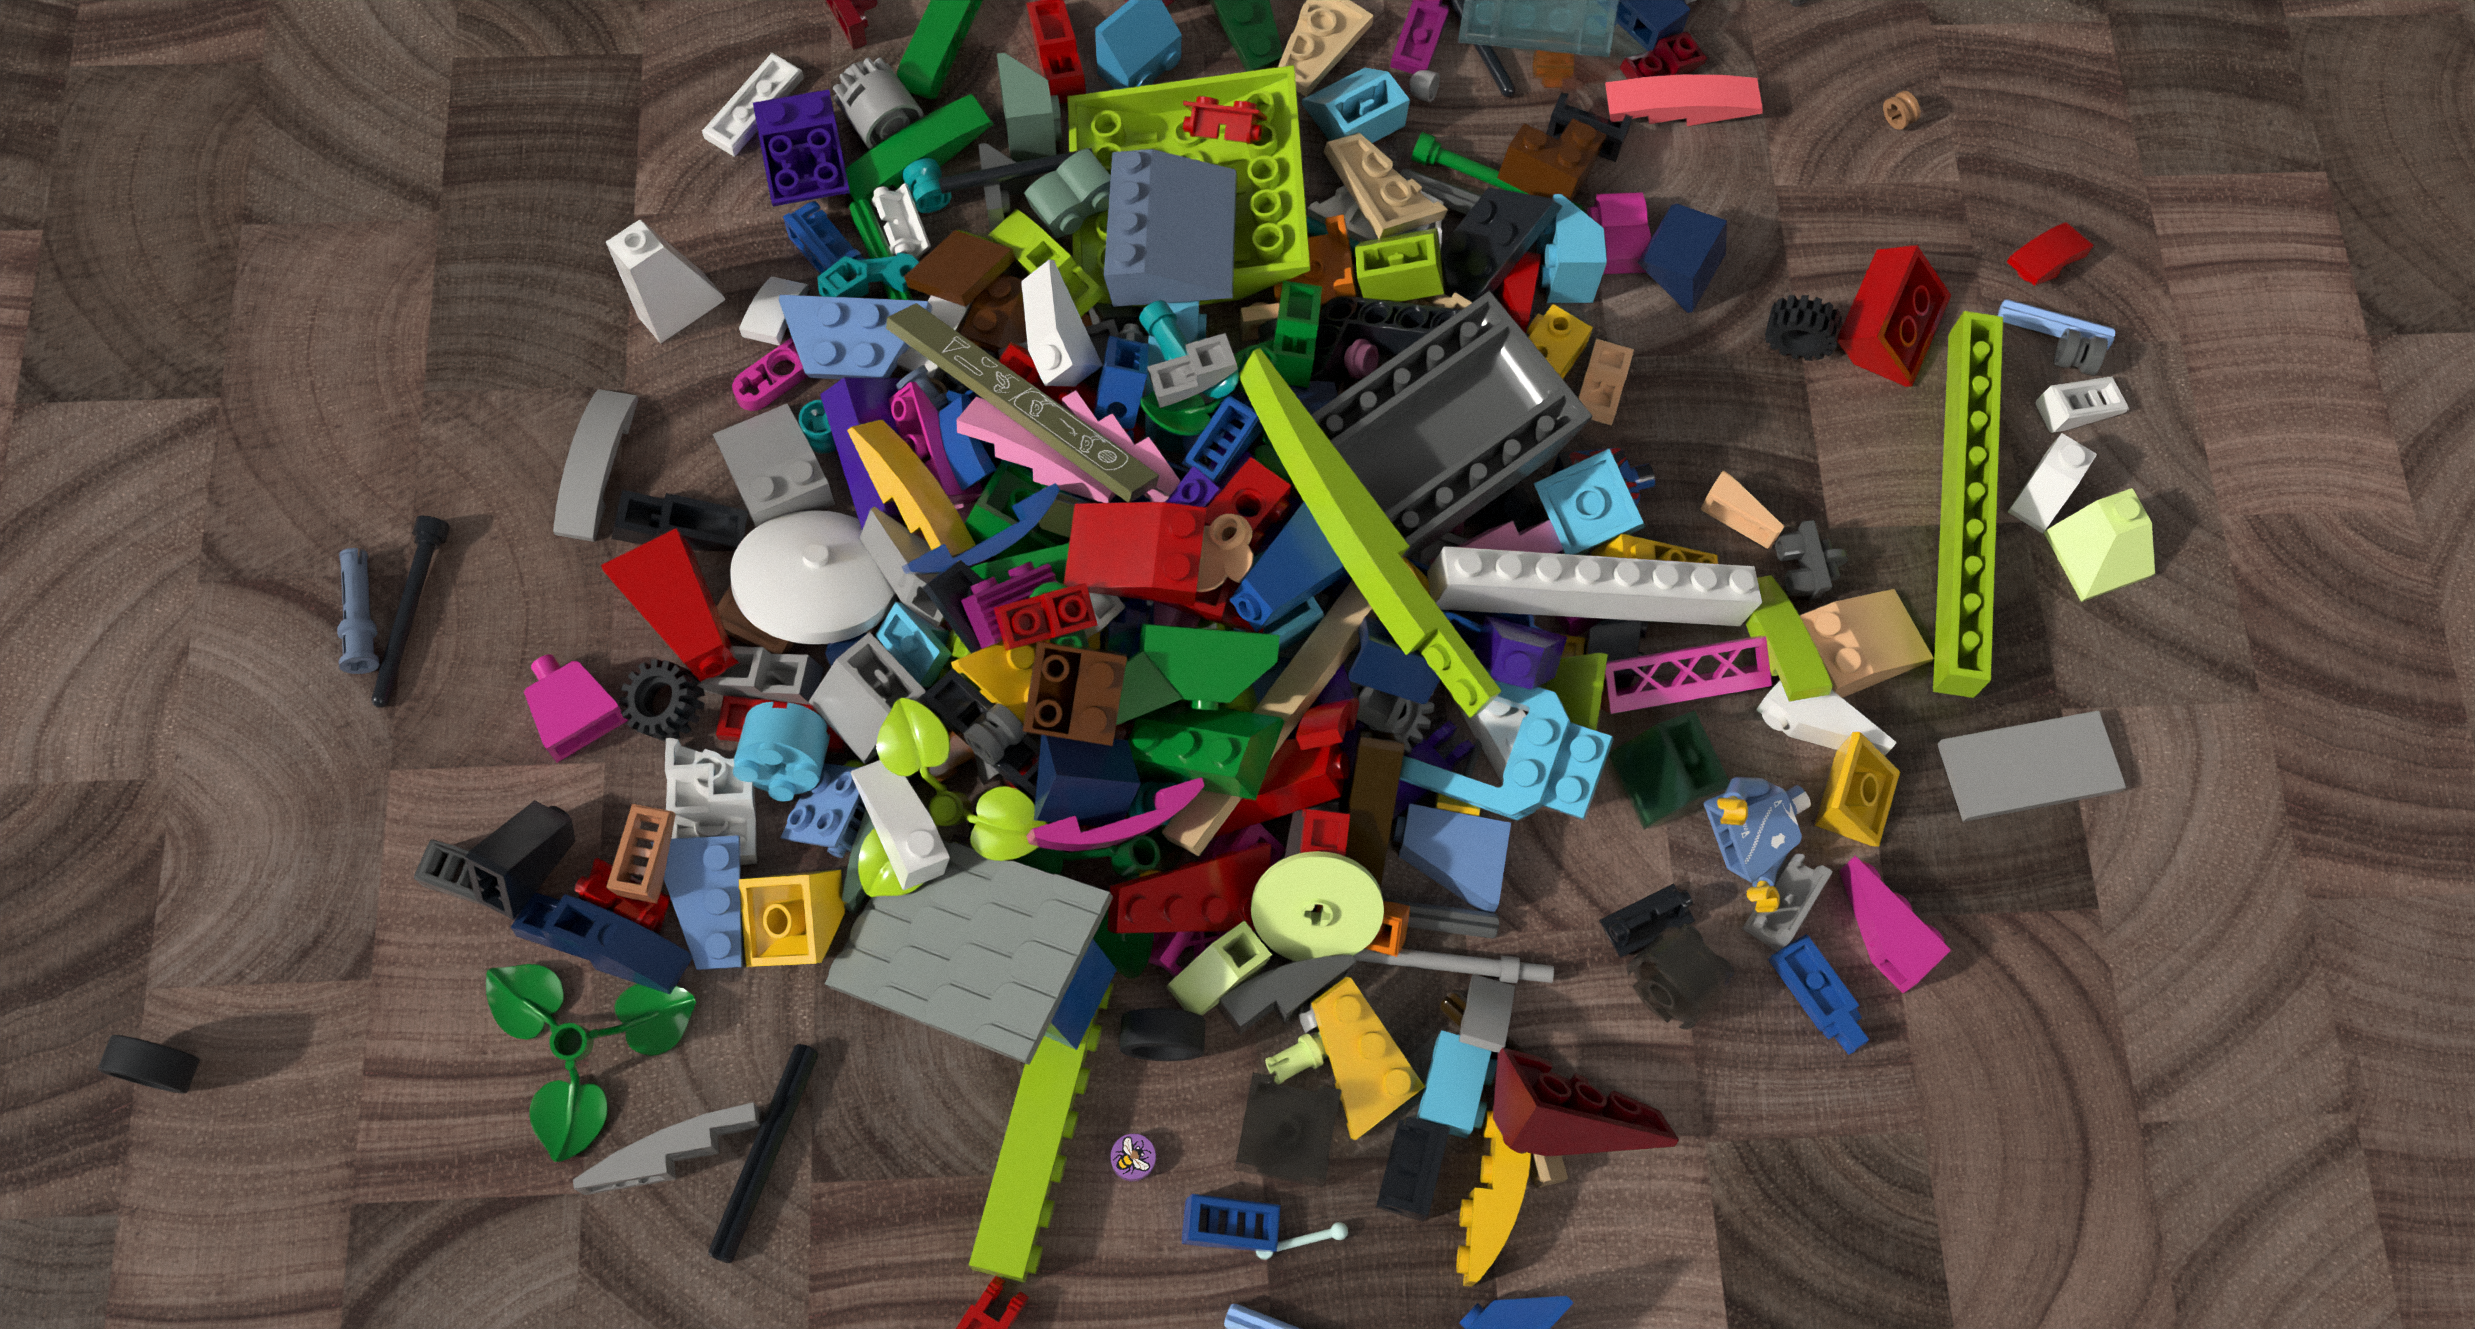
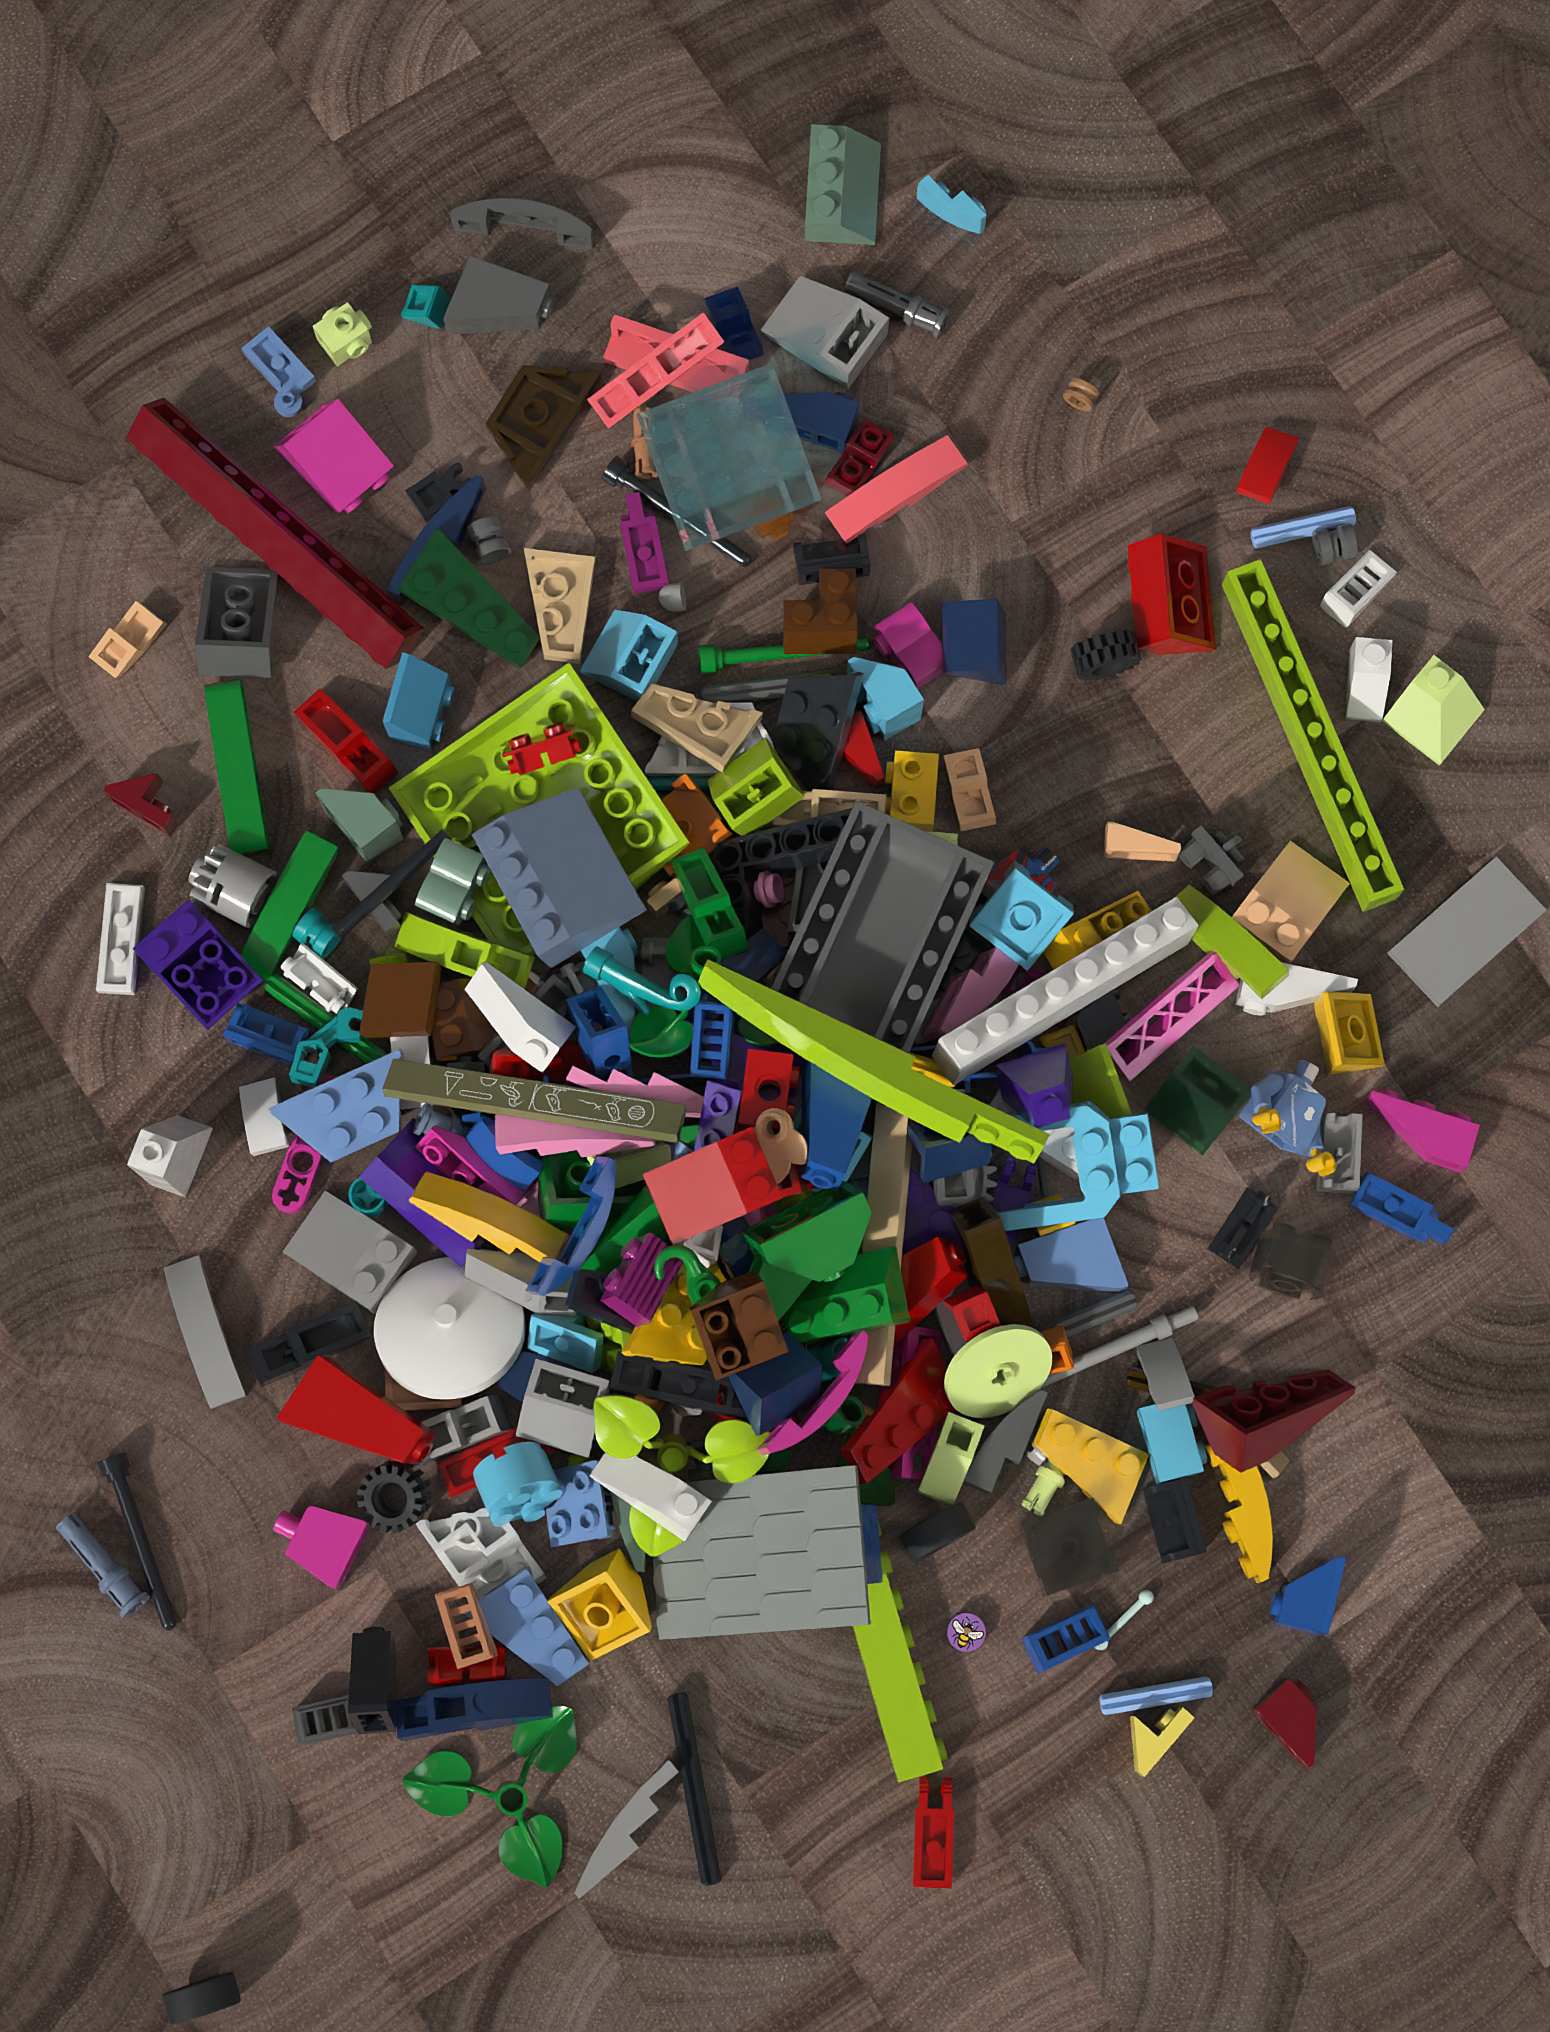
camera: 25 degrees left, 10 degrees up
(995, 734) = (688, 1388): dark grey wheel -> none
(1045, 616) = (676, 1279): red slope -> none
(1203, 367) = (661, 1000): light grey slope -> none
(1327, 723) = (927, 1227): red slope -> none

